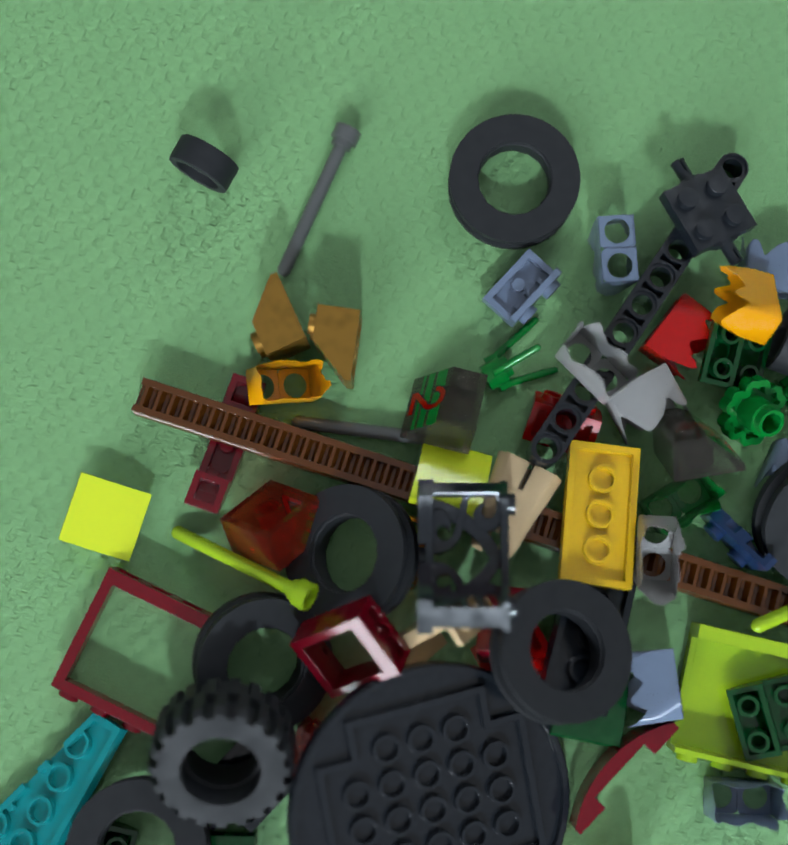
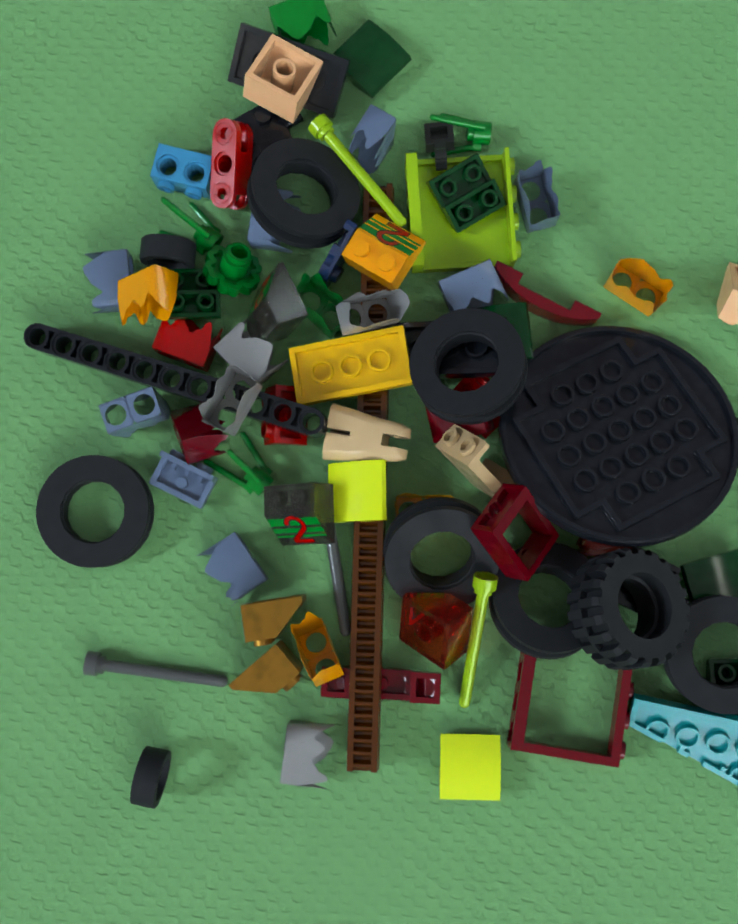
camera: 105 degrees left, 0 degrees up
(183, 337) = (304, 748): none -> light grey piece
(408, 320) = (235, 564): none -> sand blue piece
(433, 600) = (458, 475): black fence -> none
(564, 312) = (195, 436): none -> dark red piece
(707, 211) = (79, 346): black plate -> none
(727, 593) = (383, 251): none -> light orange slope

